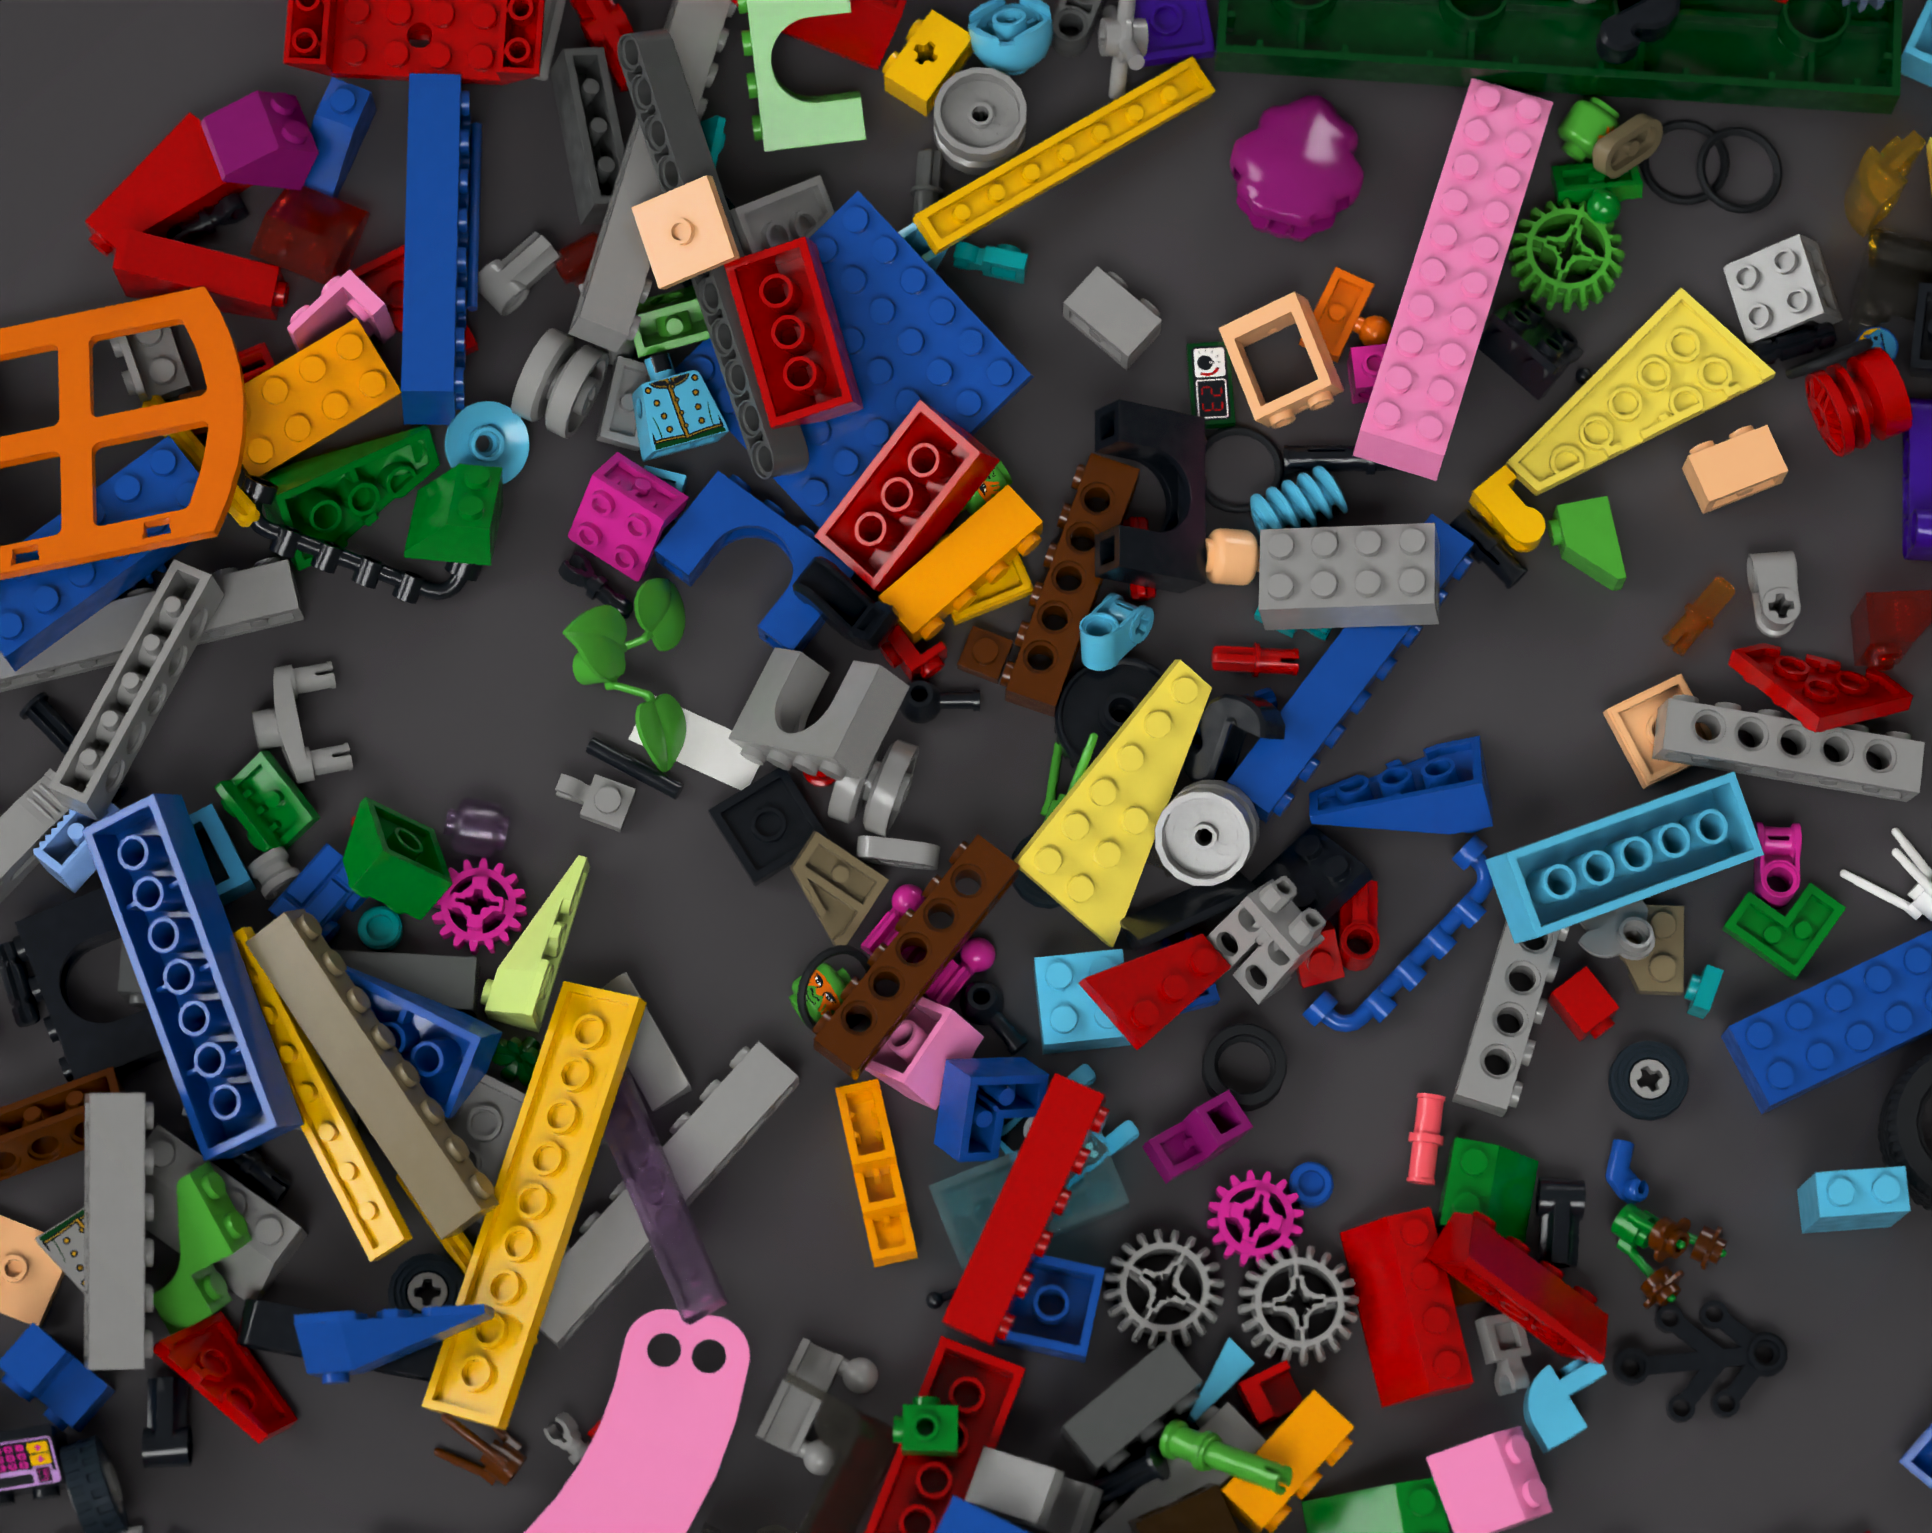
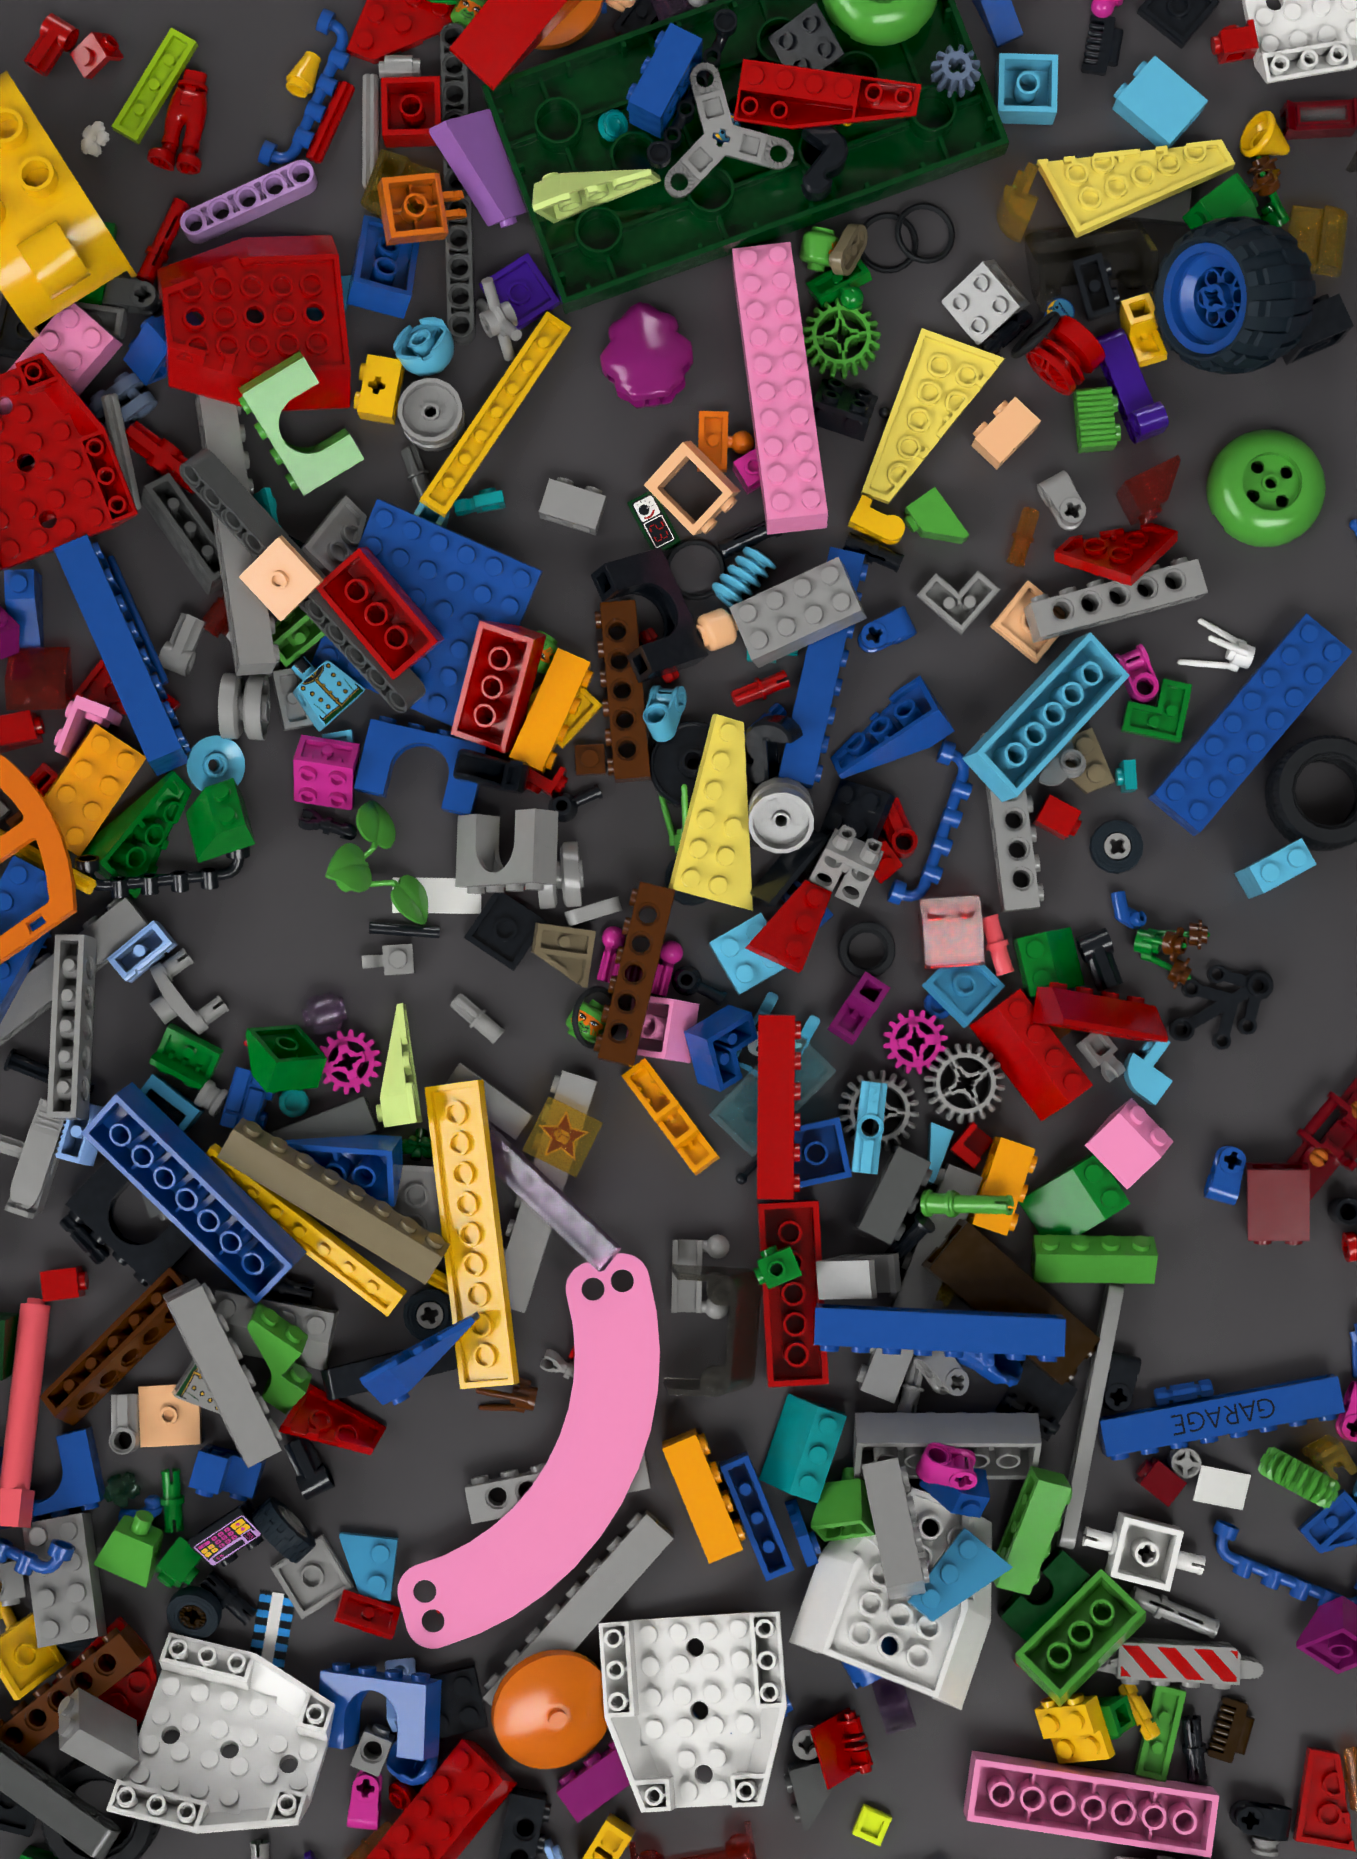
camera: 25 degrees left, 10 degrees up
(275, 640) = (142, 951): none -> light blue brick
(676, 925) = (477, 1018): none -> light grey axle
(718, 1128) = (562, 1136): none -> clear yellow tile
(1123, 1323) = (867, 1148): none -> medium azure piece
(1355, 1172) = (963, 990): none -> dark azure plate
(1371, 1090) = (951, 931): none -> clear red slope
(1466, 658) = (890, 628): none -> blue piece
(1572, 669) = (960, 607): none -> light grey brick
(1864, 504) = (1095, 419): none -> bright green brick

